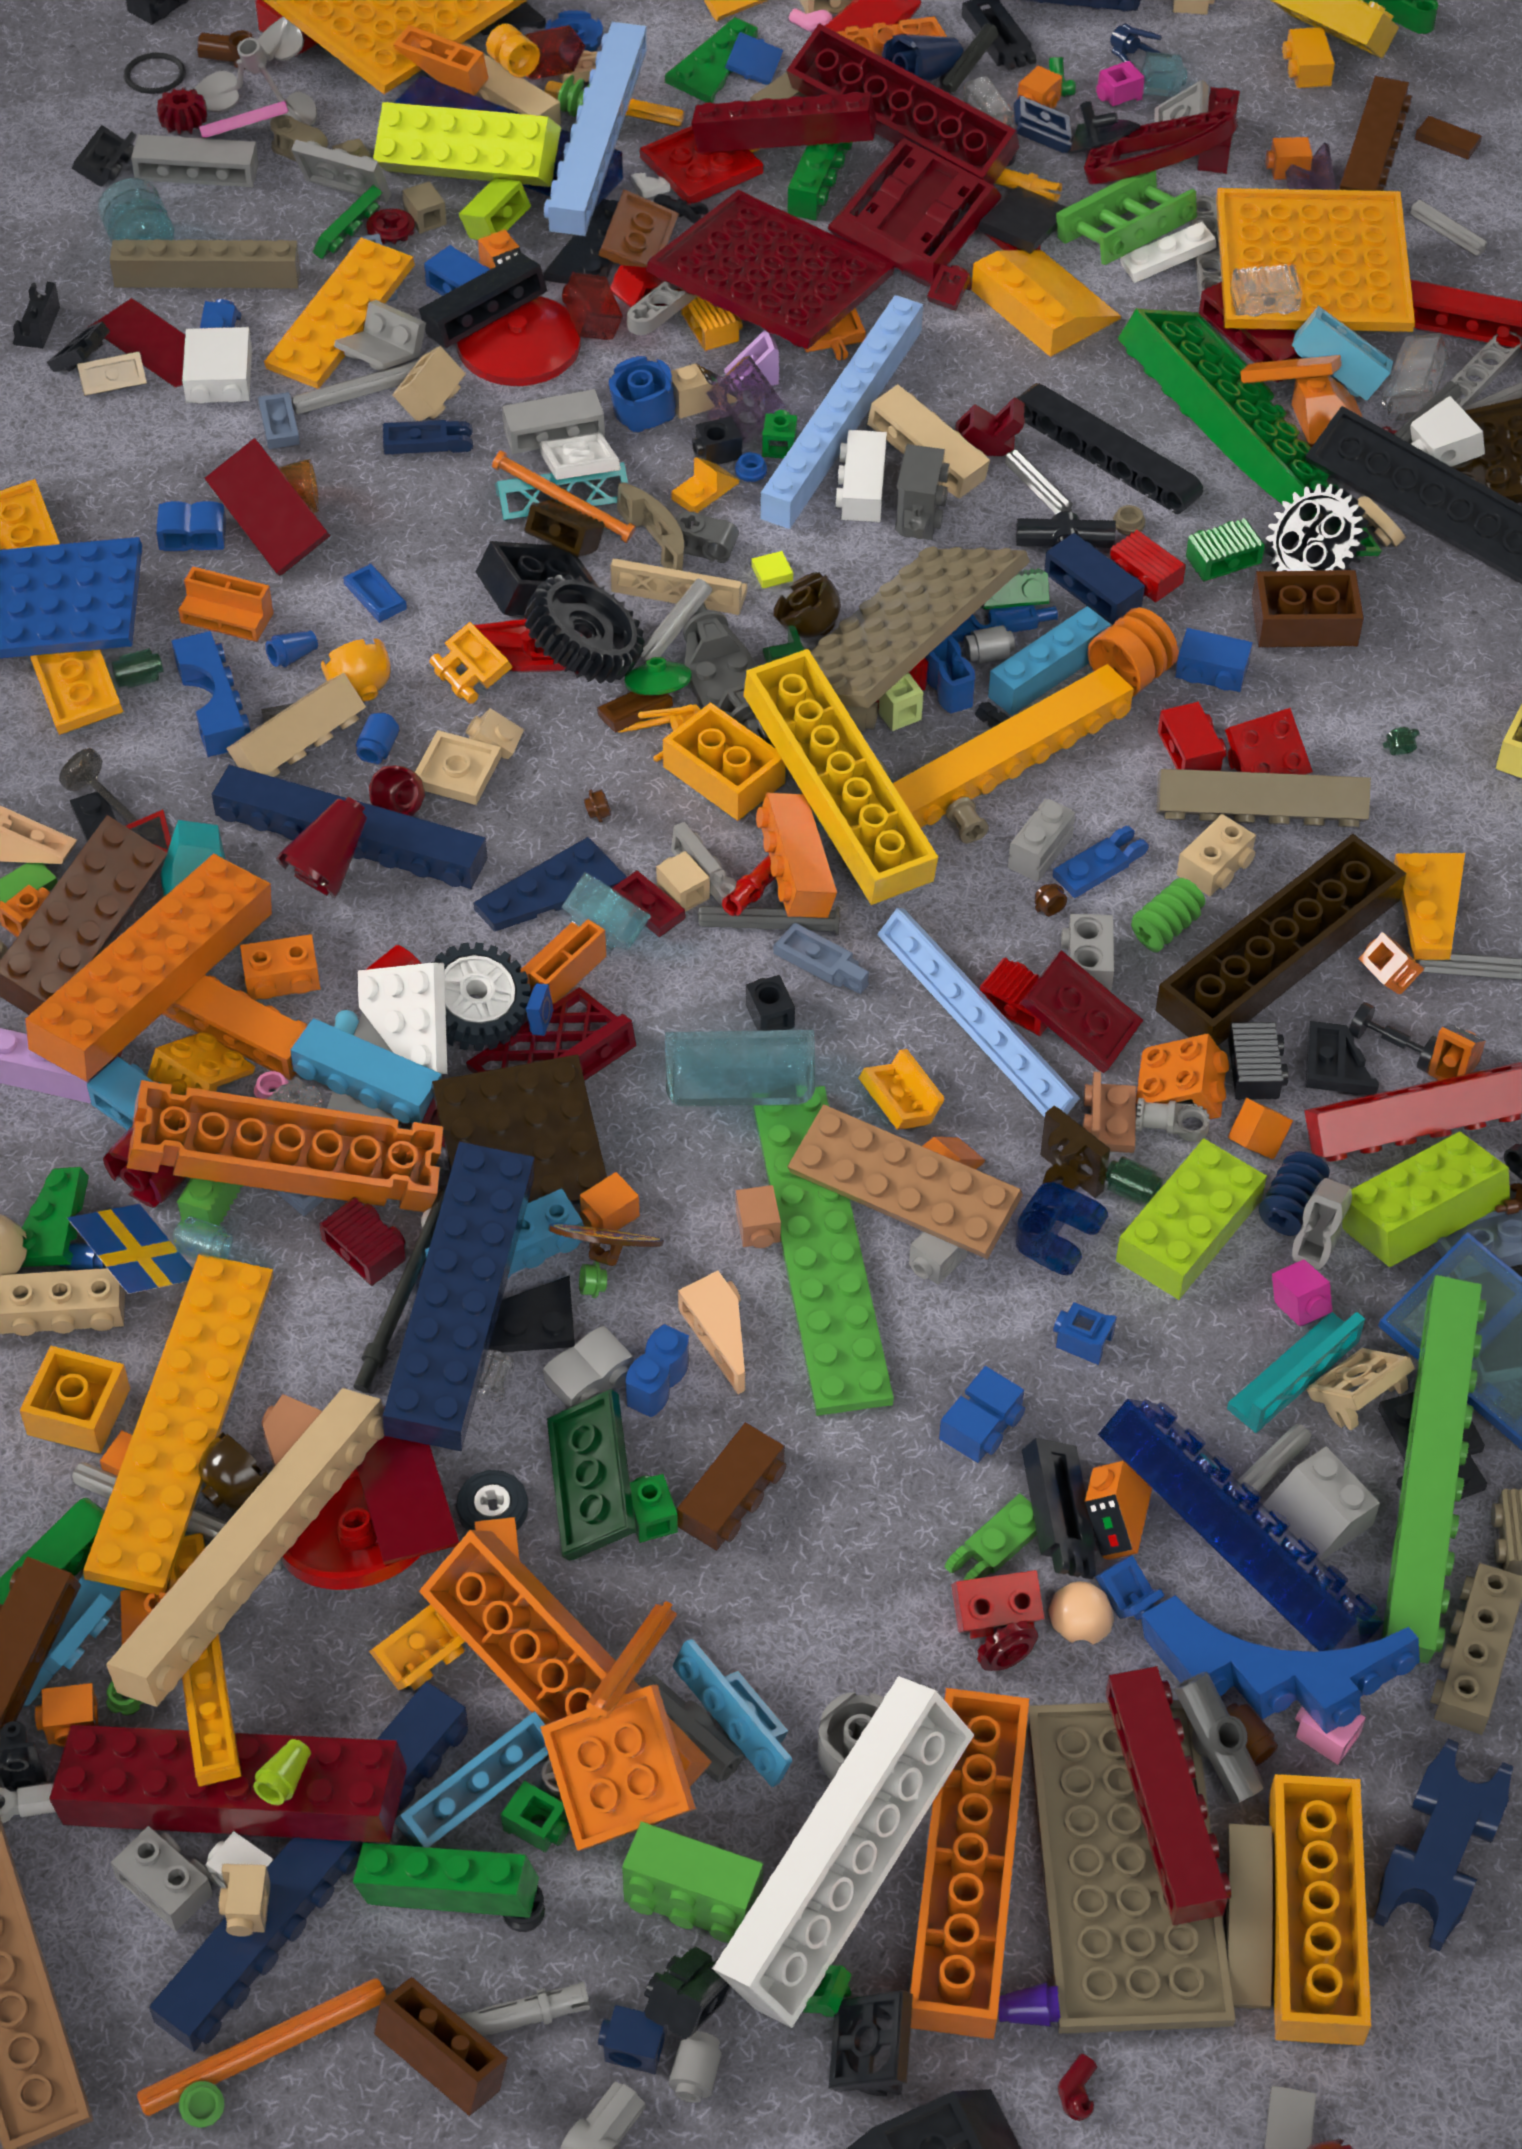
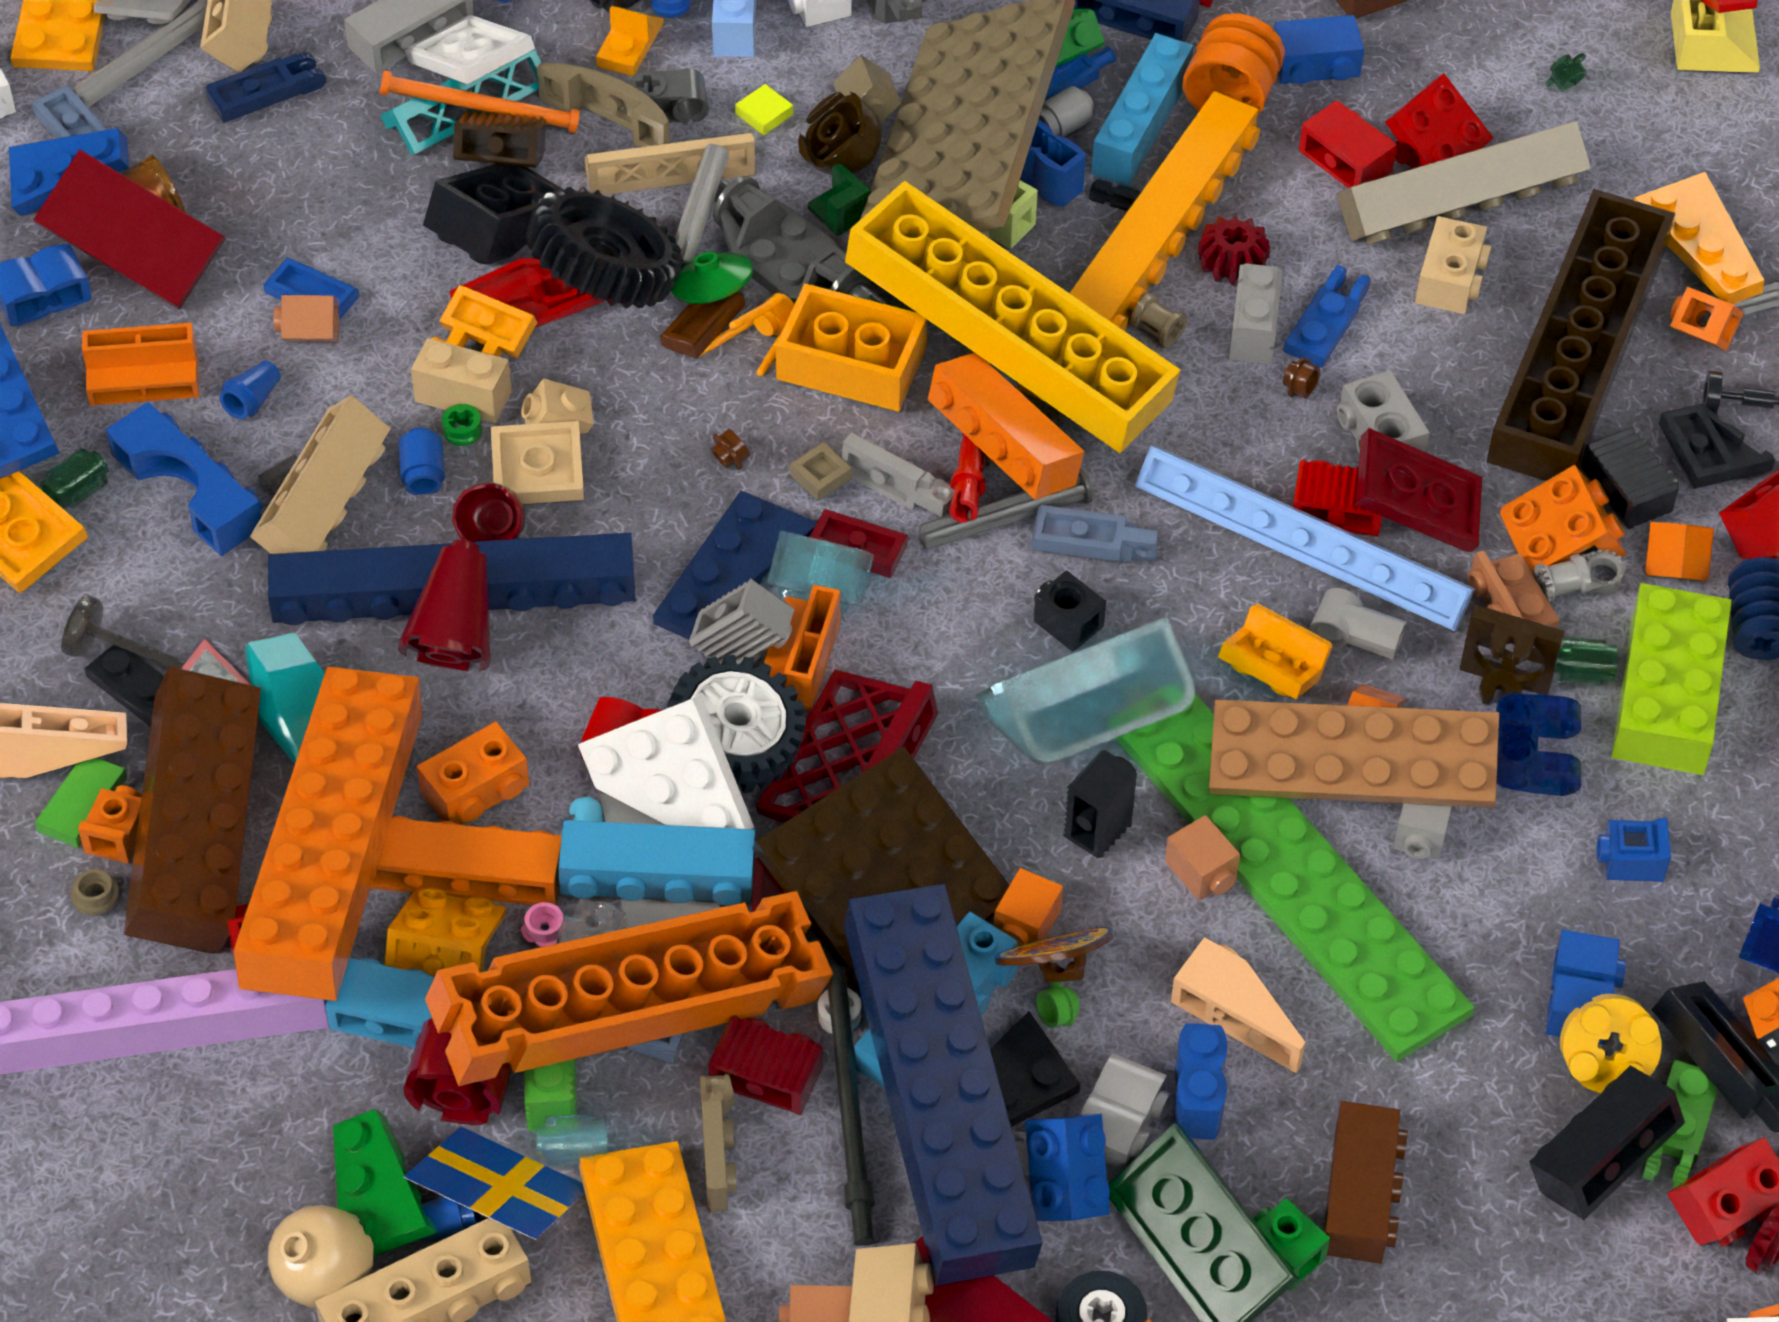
camera: 25 degrees left, 0 degrees up
(277, 443) = (40, 165): none -> blue wing
(297, 1277) = (716, 1101): none -> dark tan hinge
(356, 611) = (307, 319): none -> nougat brick
(363, 664) = (360, 374): light orange cylinder -> none
(427, 716) = (461, 435): none -> green bush
(436, 690) = (457, 375): none -> tan brick
(523, 930) = (742, 623): none -> light grey brick
(523, 1392) = (1067, 1167): none -> blue bracket
(539, 1009) = (814, 711): blue tile -> none
(653, 843) = (820, 471): none -> dark tan plate
(683, 881) = (884, 500): tan brick -> none
(702, 1148) = (1100, 803): none -> black brick
(851, 578) = (870, 84): none -> dark tan brick
(924, 1529) = (1607, 1142): none -> black brick
(971, 1087) = (1345, 620): none -> light grey piece
(993, 1457) = (1596, 1021): none -> yellow plate
(1056, 783) = (1232, 244): none -> dark red gear
(1168, 914) = (1442, 349): bright green piece -> none

